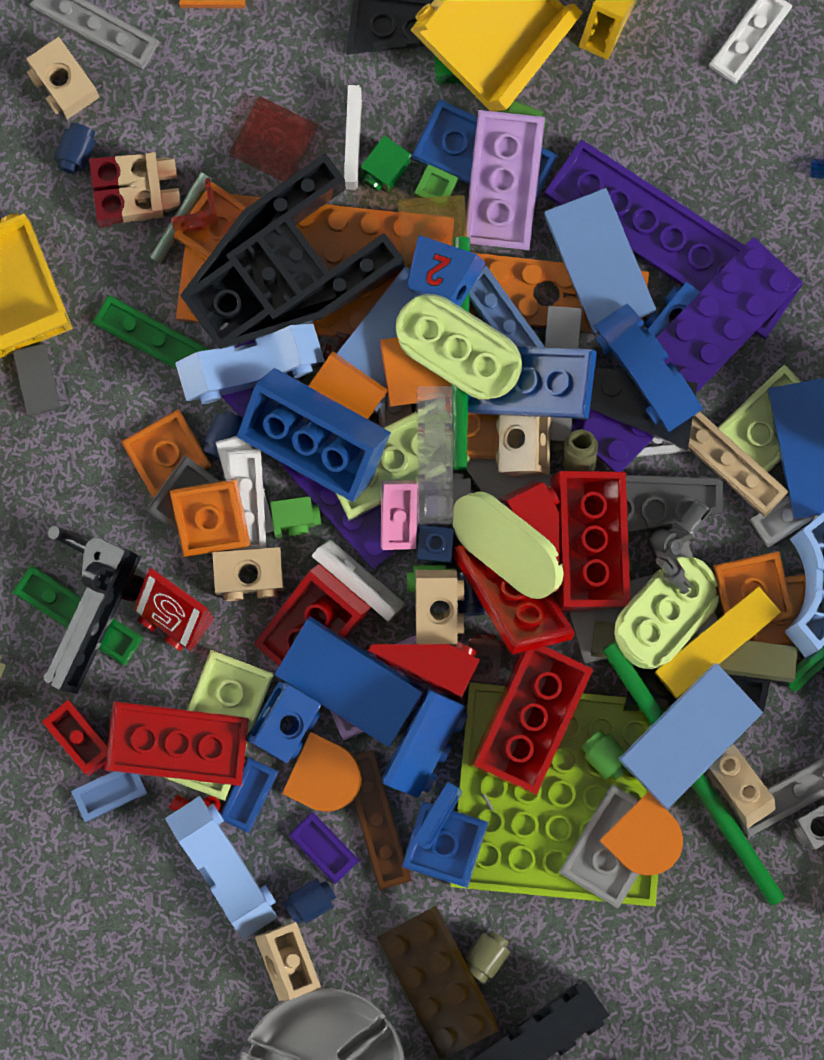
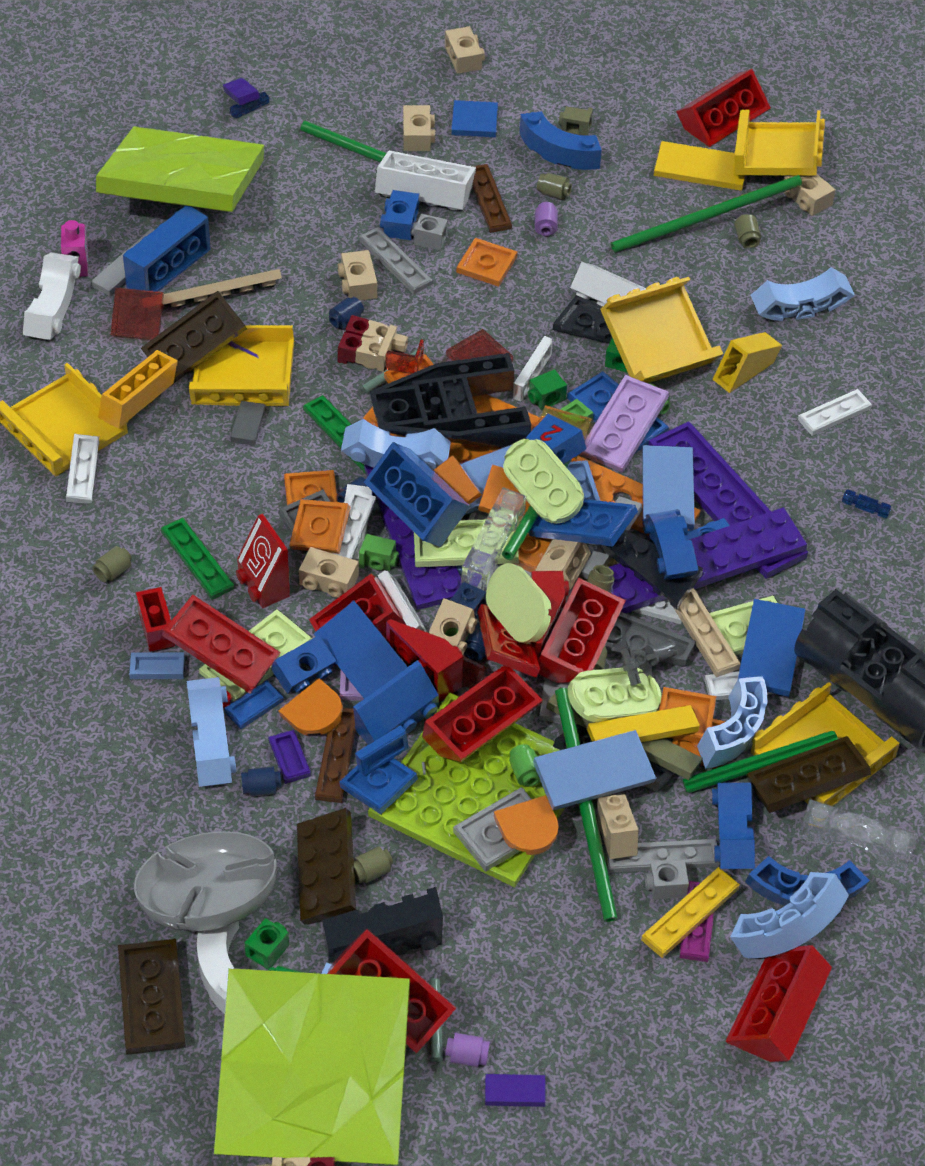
camera: 20 degrees right, 30 degrees down
(109, 578) = (231, 528): black piece -> none
(287, 961) = (223, 803): tan brick -> none
(398, 514) = (450, 569): bright pink plate -> none

